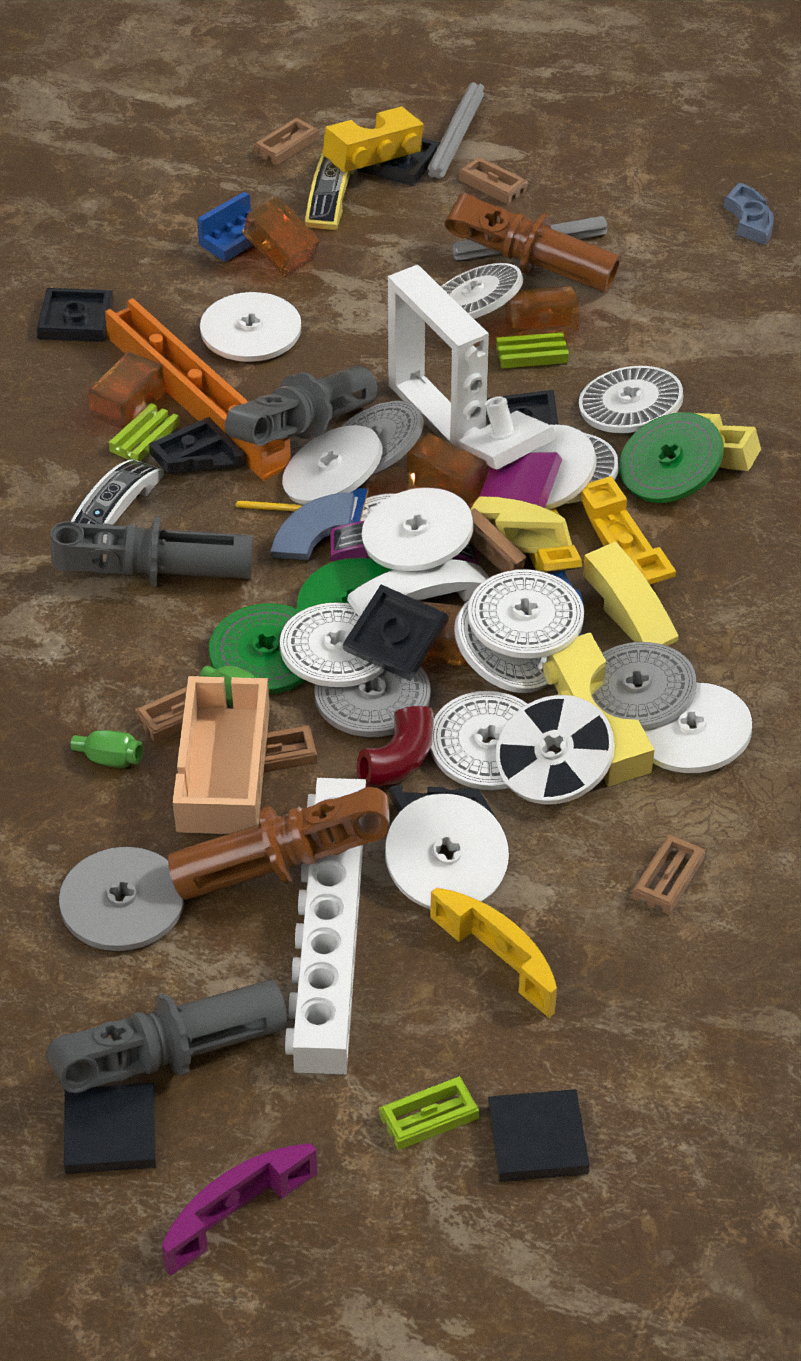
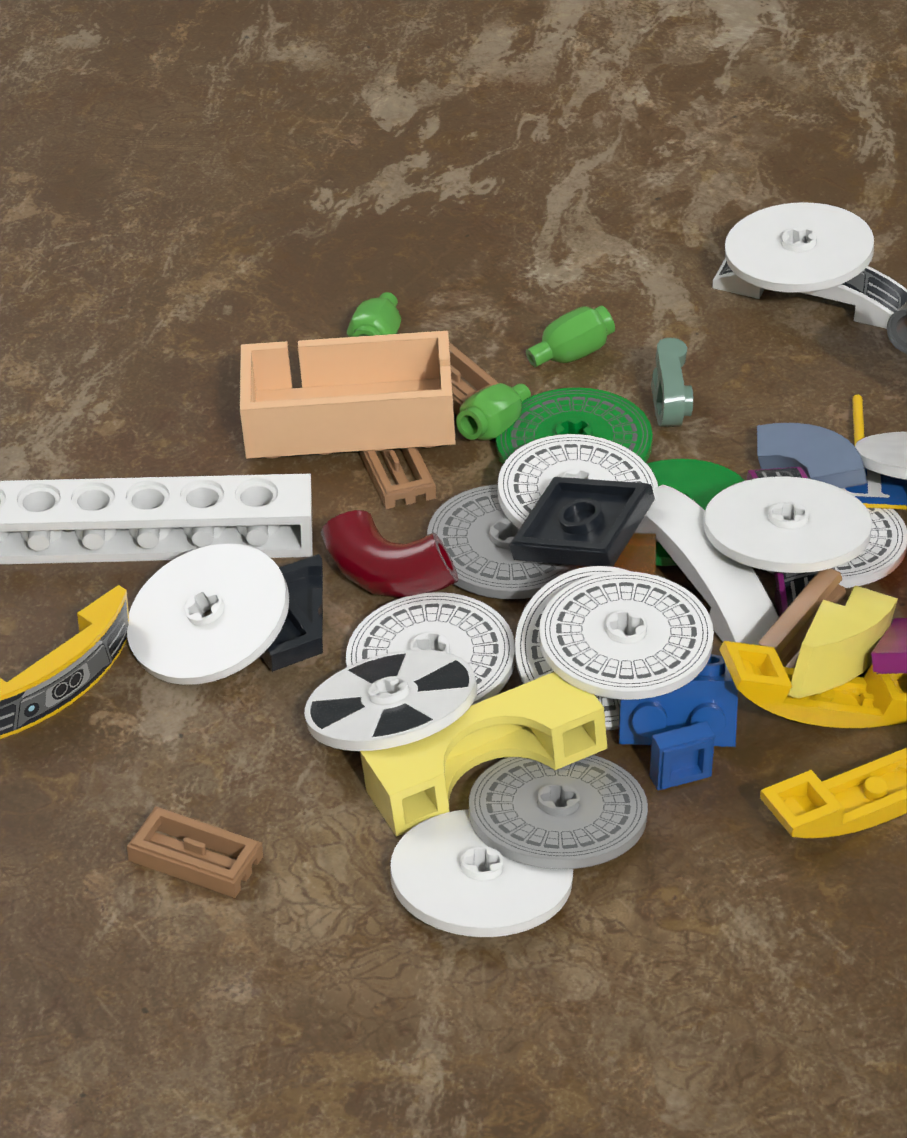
camera: 85 degrees right, 5 degrees down
(99, 880) = (140, 361): light grey piece -> none
(116, 477) = (799, 247): none -> white piece
(149, 636) = (573, 336): none -> bright green plant
(150, 551) = (711, 310): dark grey piece -> none
(237, 588) = (670, 395): none -> sand green plate
(281, 843) = (175, 433): dark orange piece -> none
(601, 619) = (682, 755): none -> blue tile
(628, 596) = (726, 787): light yellow slope -> none

